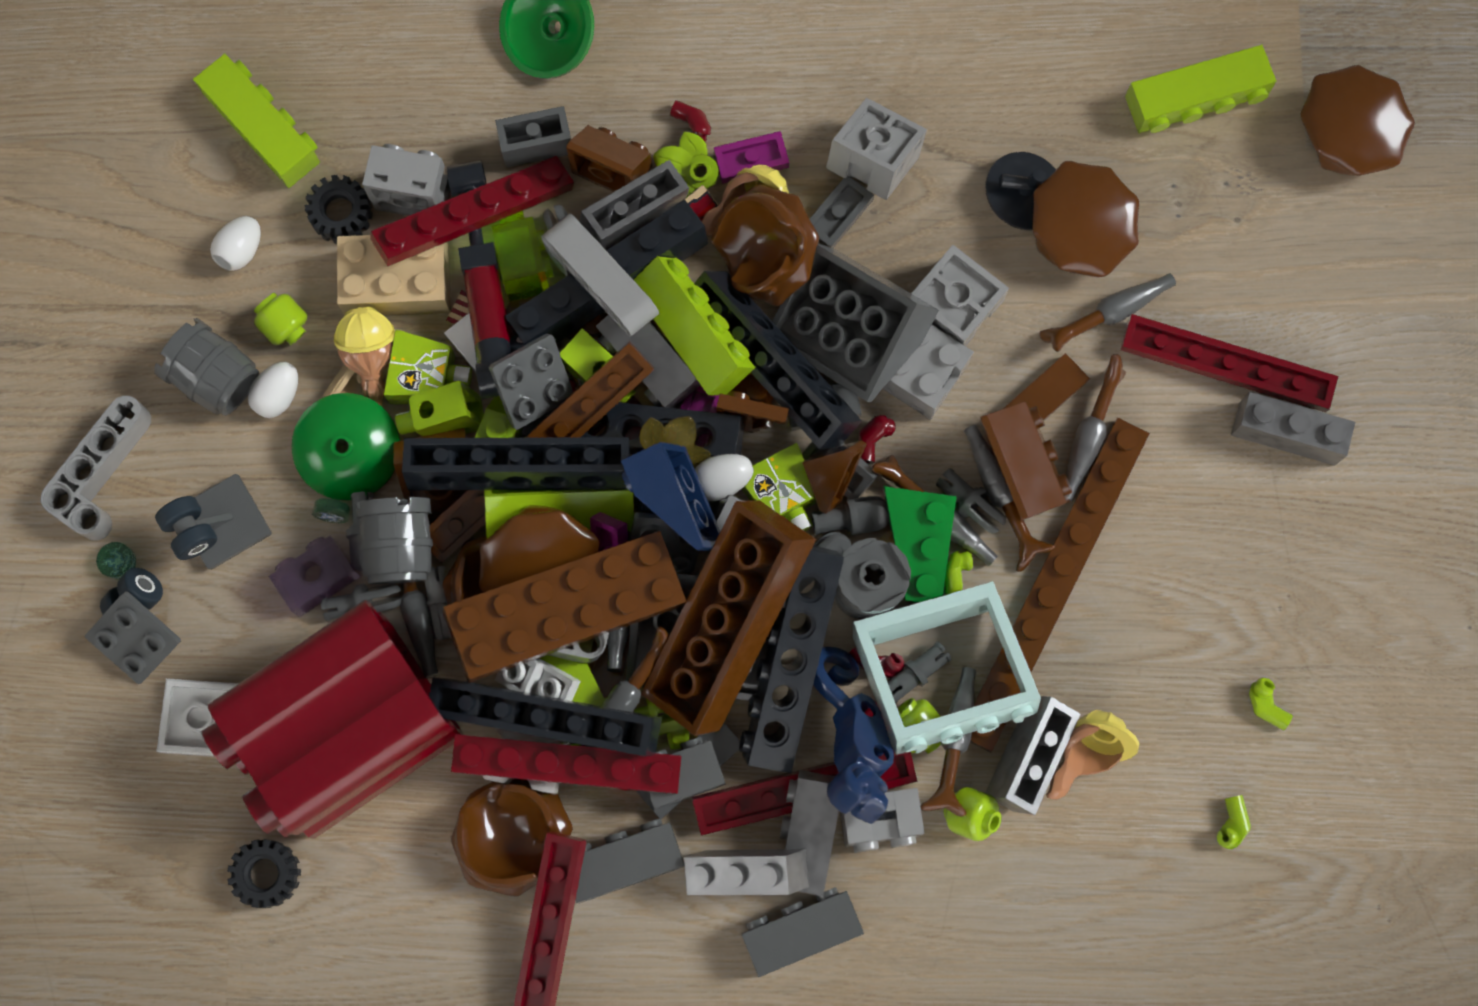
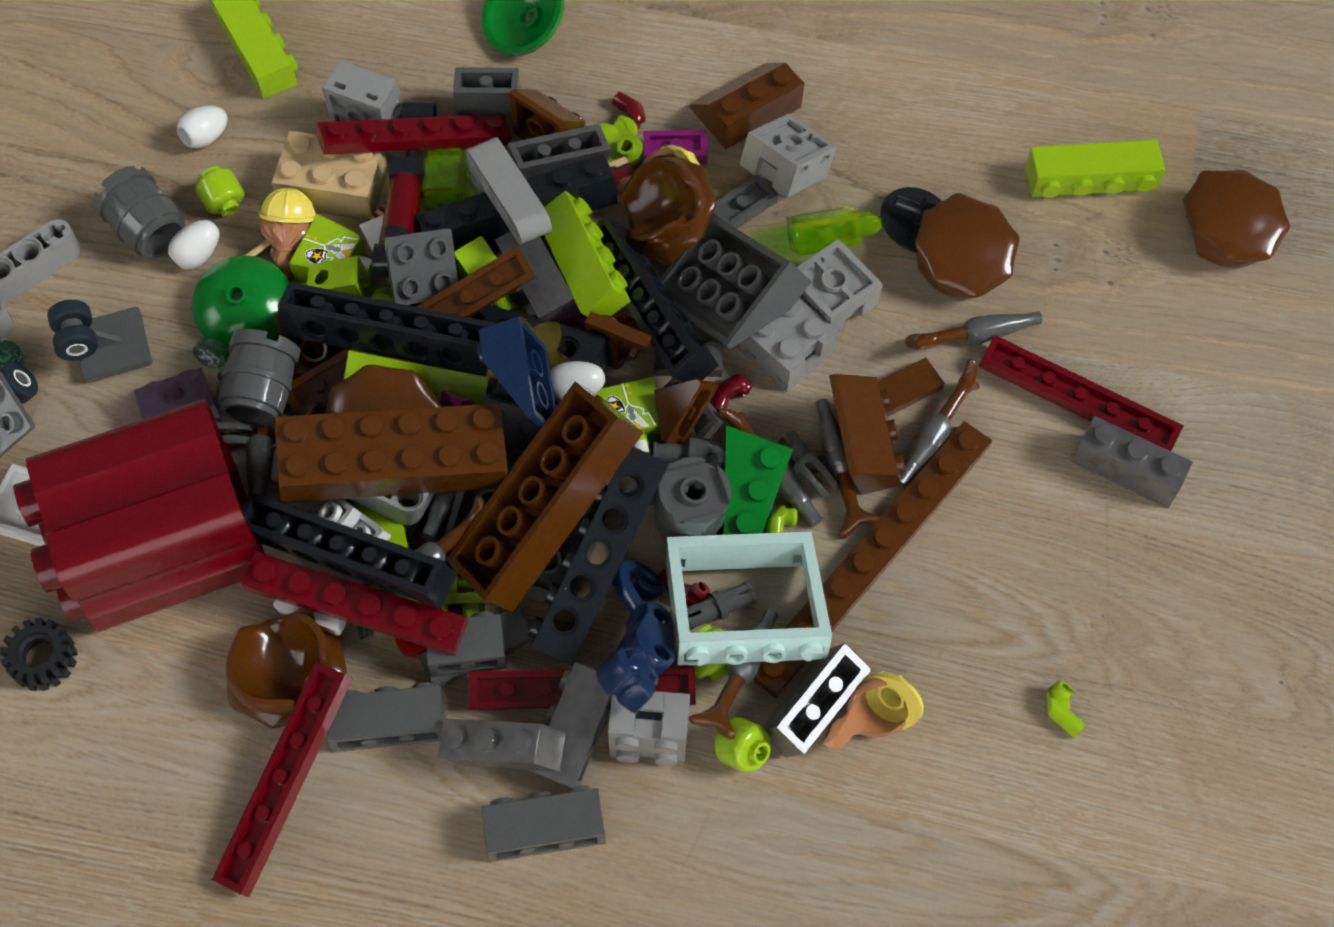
camera: 10 degrees right, 15 degrees down
(327, 193) = (295, 105): black tyre -> none
(816, 82) = (750, 102): none -> reddish brown slope
(937, 227) = (816, 230): none -> clear neon green brick
(1236, 826) = (1011, 818): lime arm -> none

